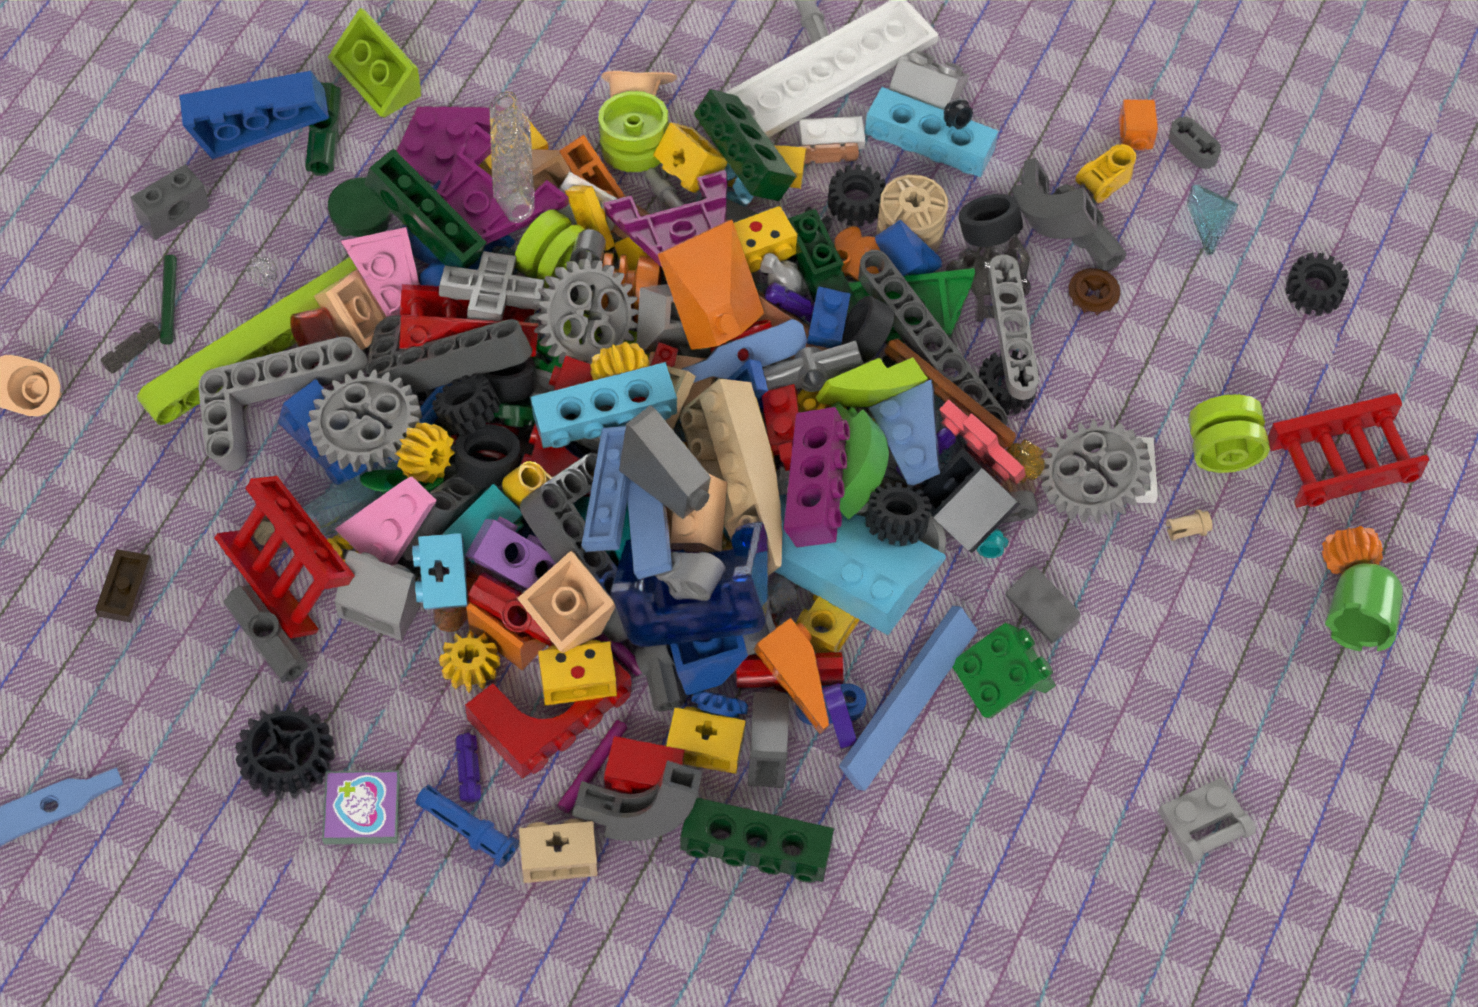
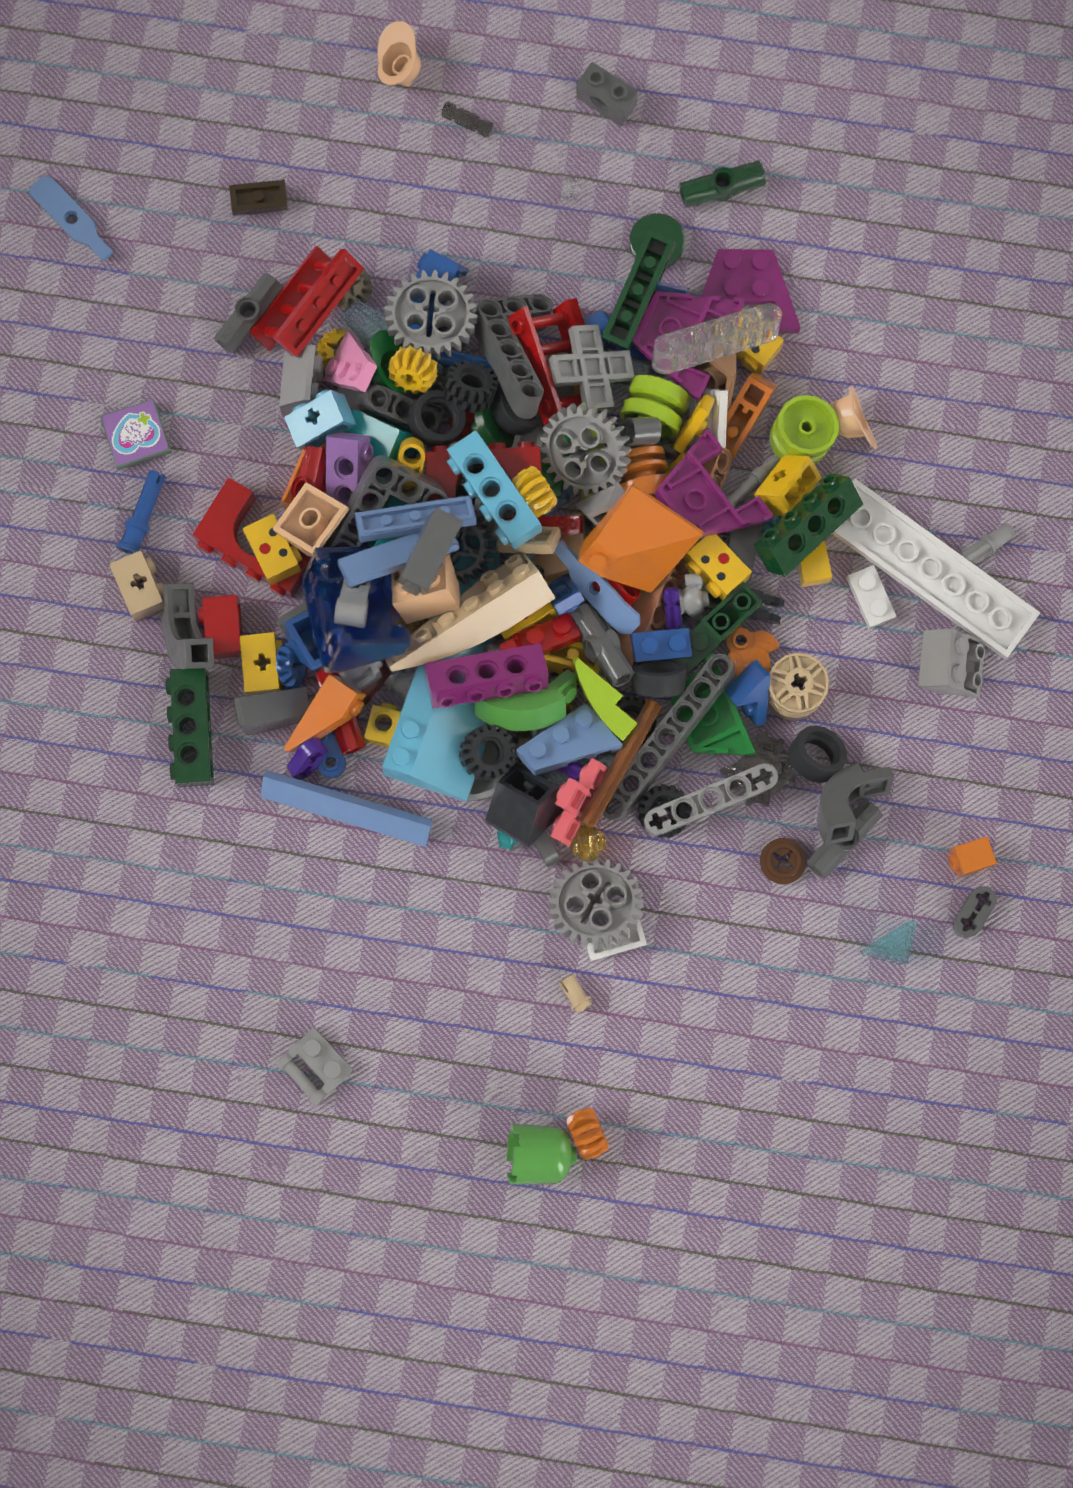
camera: 75 degrees right, 20 degrees up
(168, 299) = (521, 129): dark green bar -> none
(252, 111) = (706, 121): blue wedge -> none
(262, 335) = (515, 218): lime beam -> none
(266, 386) = (440, 204): light grey beam -> none
(308, 733) = (171, 345): black gear -> none
(312, 327) = (513, 251): clear red piece -> none
(352, 308) = (546, 270): light nougat slope -> none
(375, 65) = (799, 201): lime slope -> none
(385, 264) = (594, 280): bright pink wing -> none
(456, 659) = (262, 472): yellow gear -> none
(468, 768) = (189, 498): dark purple axle -> none
(592, 766) = (219, 588): magenta bar -> none
(831, 153) = (848, 599): nougat axle -> none
(855, 180) = (816, 619): black tyre -> none
(922, 130) = (910, 637): medium azure brick -> none
(958, 113) = (912, 695): black plate -> none
(1002, 669) = (394, 876): green bracket -> none
(1043, 605) = (463, 892): flat silver slope -> none
(1104, 174) = (907, 841): yellow piece -> none
(1228, 433) = (666, 1004): lime wheel -> none
(1312, 298) = (872, 1044): black tyre -> none
(1349, 420) = (718, 1110): red fence -> none

